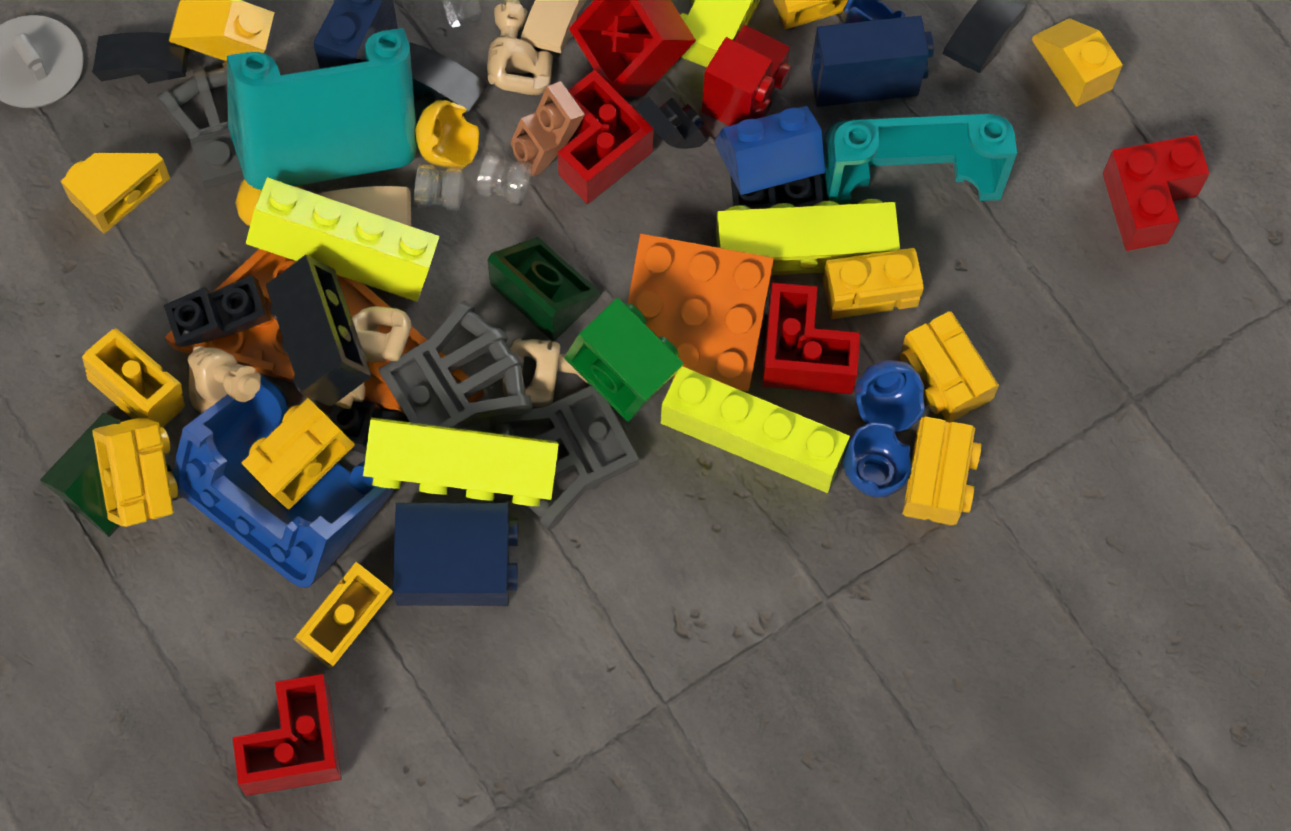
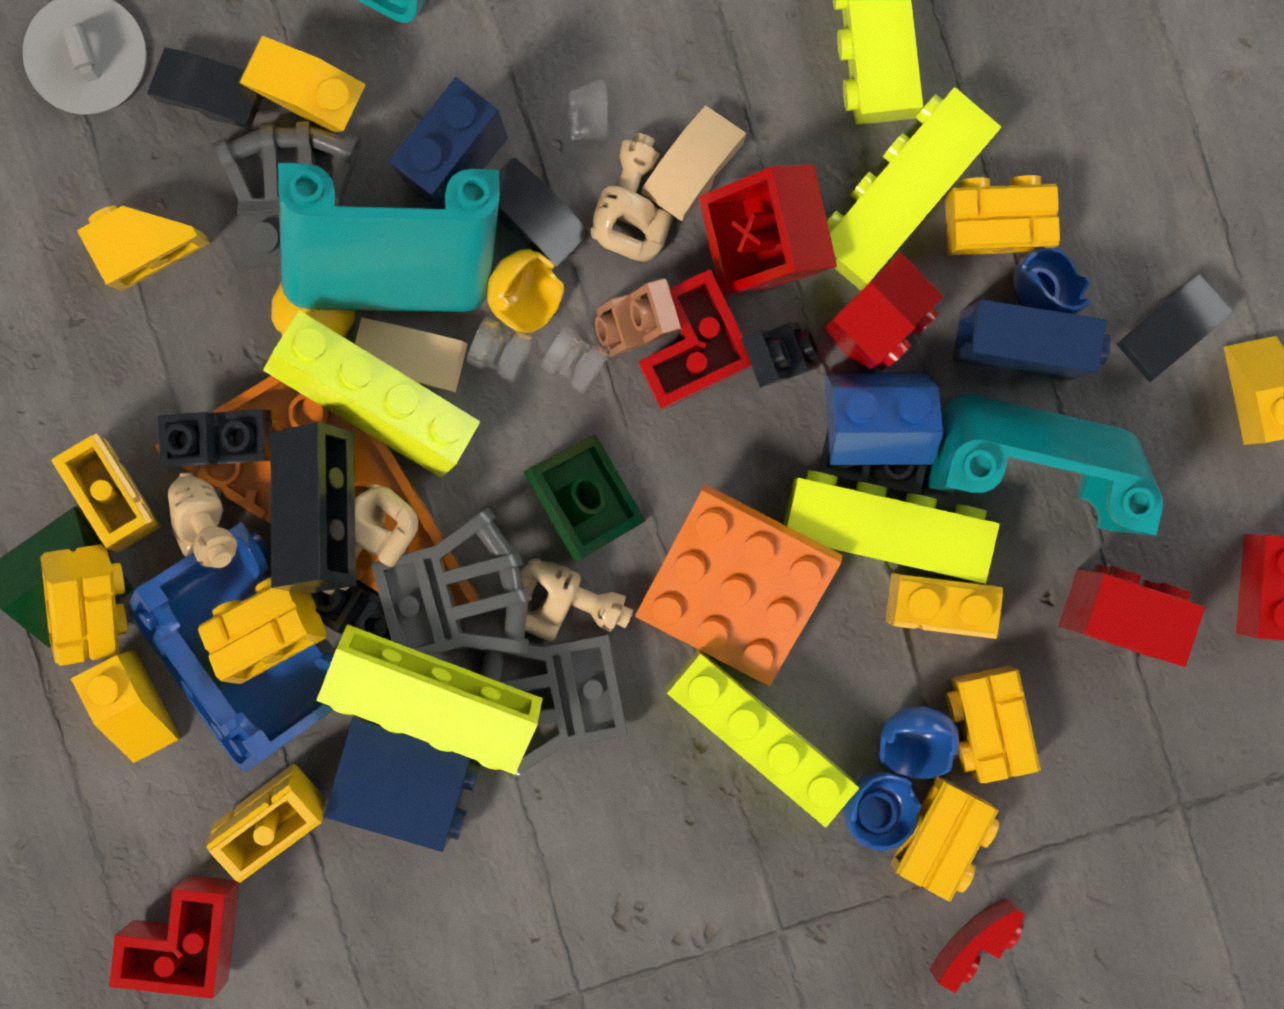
camera: 20 degrees right, 20 degrees up
(191, 558) = (126, 706): none -> yellow slope
(623, 358) = (644, 652): green brick -> none
(806, 356) = (832, 663): red brick -> none
(1004, 544) = (989, 930): none -> red slope
(1028, 242) = (1140, 618): none -> red brick

